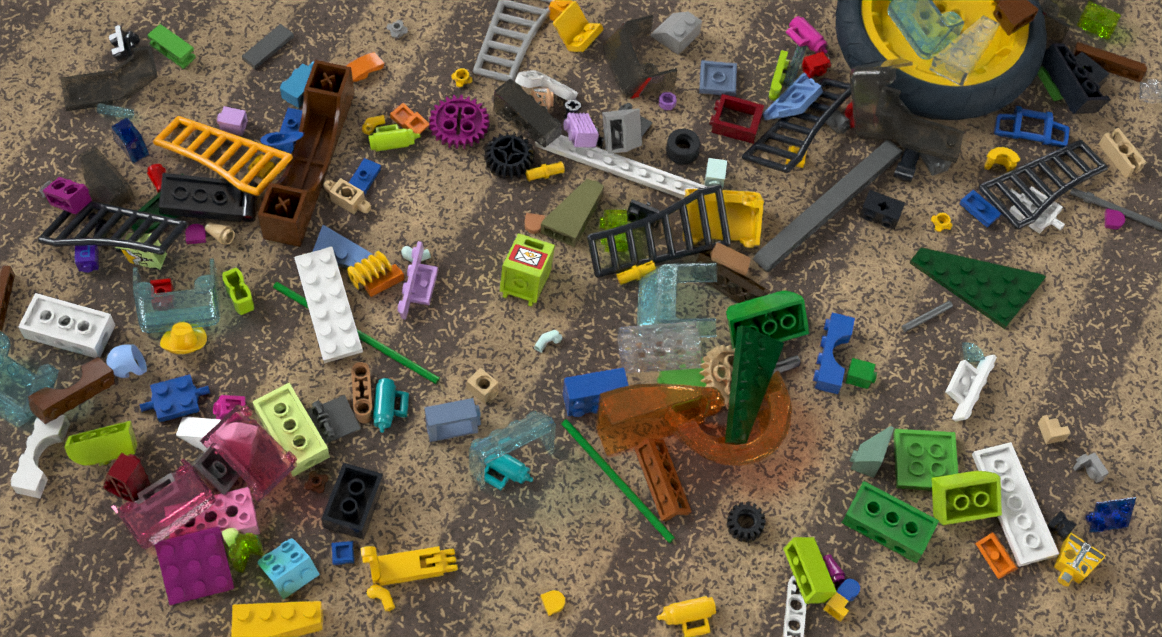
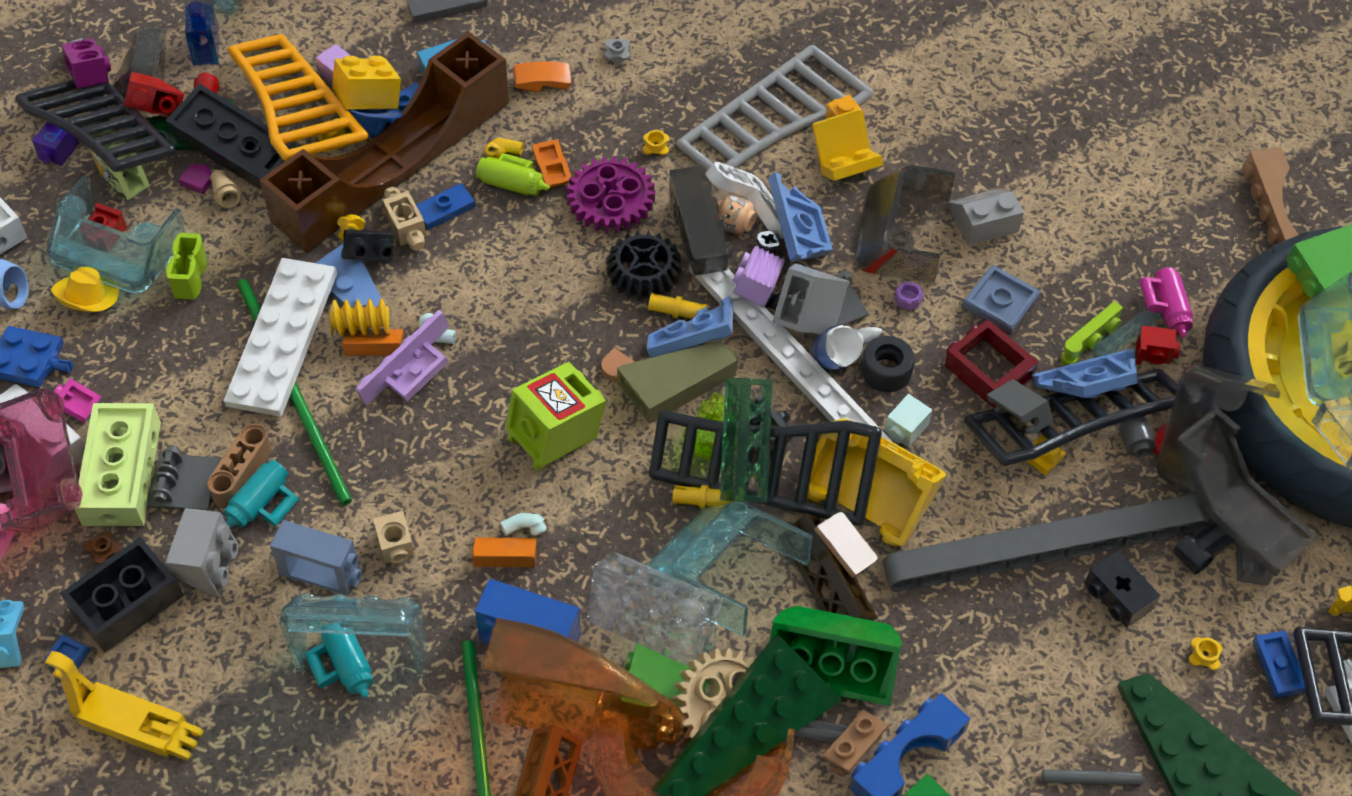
camera: 35 degrees right, 5 degrees down
(135, 195) = (152, 95): none -> red slope
(264, 122) = (366, 83): none -> yellow brick
(319, 218) = (350, 221): none -> yellow plate
(341, 223) = (368, 245): none -> black hips
(383, 594) = (72, 737): yellow arm -> none
(384, 450) = (202, 551): none -> light grey slope
(548, 361) = (504, 552): none -> orange slope
(569, 178) = (702, 328): none -> medium blue wing
(581, 84) = (800, 222): none -> medium blue wing
(646, 229) = (737, 436): none -> clear green fence
(653, 148) = (841, 346): none -> white hair
(775, 133) = (1023, 404): none -> dark grey hinge
(805, 362) = (855, 742): none -> medium nougat hinge

